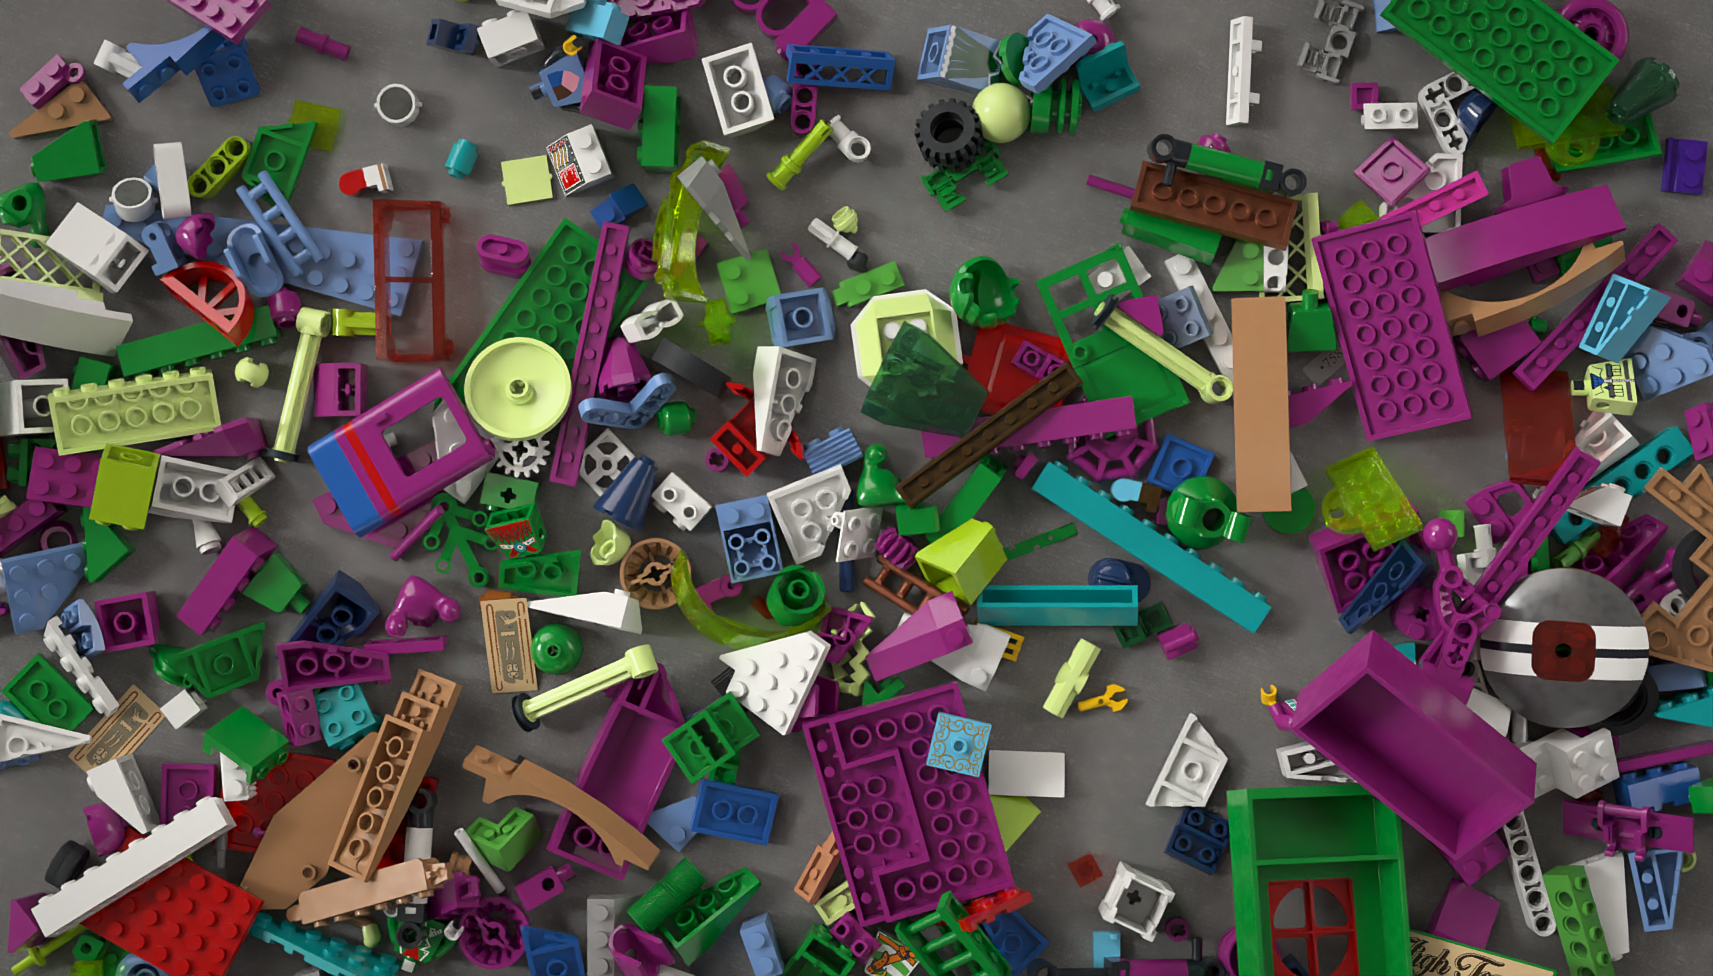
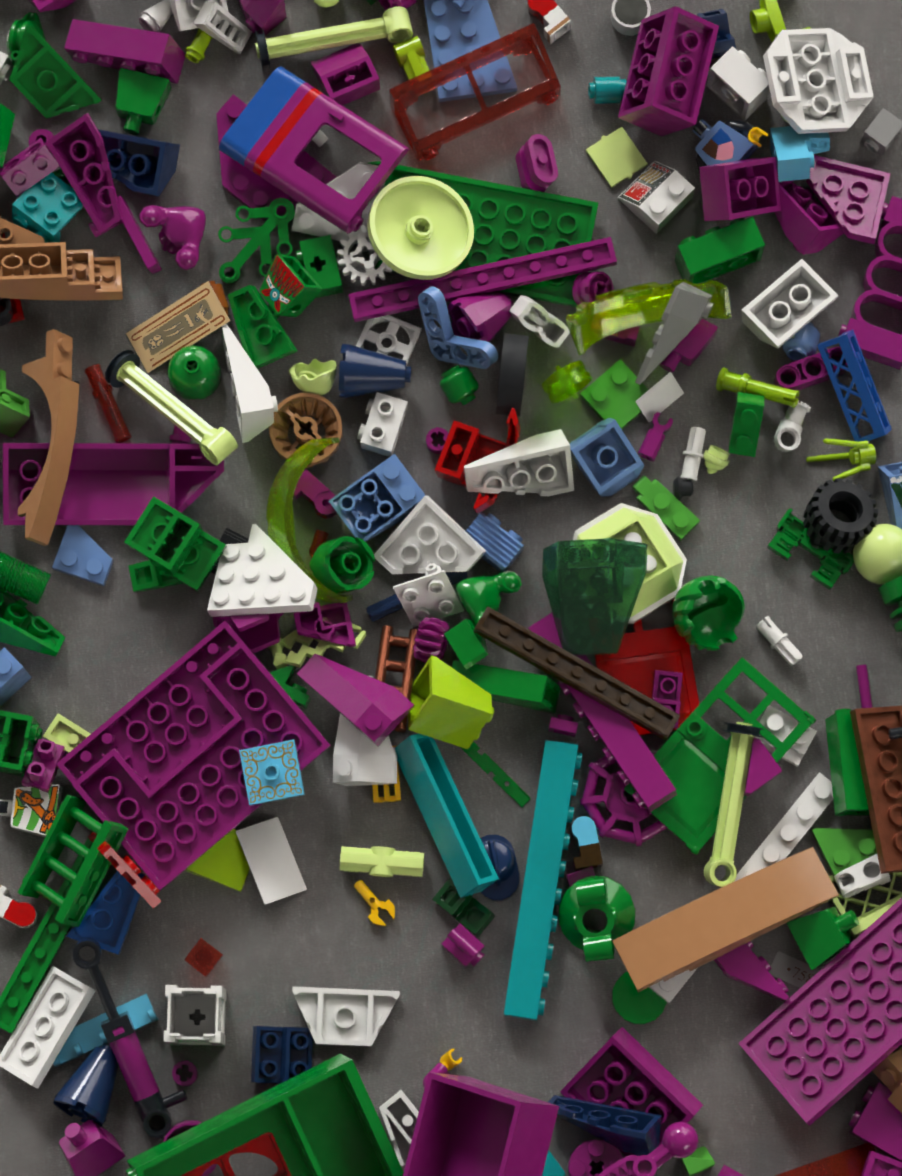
camera: 60 degrees right, 10 degrees down
(416, 533) = (245, 198): magenta bar -> none
(473, 97) = (668, 71): none -> magenta brick
(519, 738) = (96, 375): none -> clear red pin
(620, 206) = (633, 250): blue slope -> none
(734, 811) = (113, 600): blue plate -> none
(767, 244) = (659, 396): none -> white sticker
(818, 871) = (89, 705): nougat hinge -> none
(829, 179) = (746, 424): none -> green brick
(901, 90) = (862, 455): none -> lime plant
(1034, 241) = (779, 641): none -> white axle
(1177, 462) = (635, 871): blue tile -> none
(1183, 318) = (771, 810): sand blue plate -> none
(1369, 501) = (680, 1064): clear neon green plate -> none

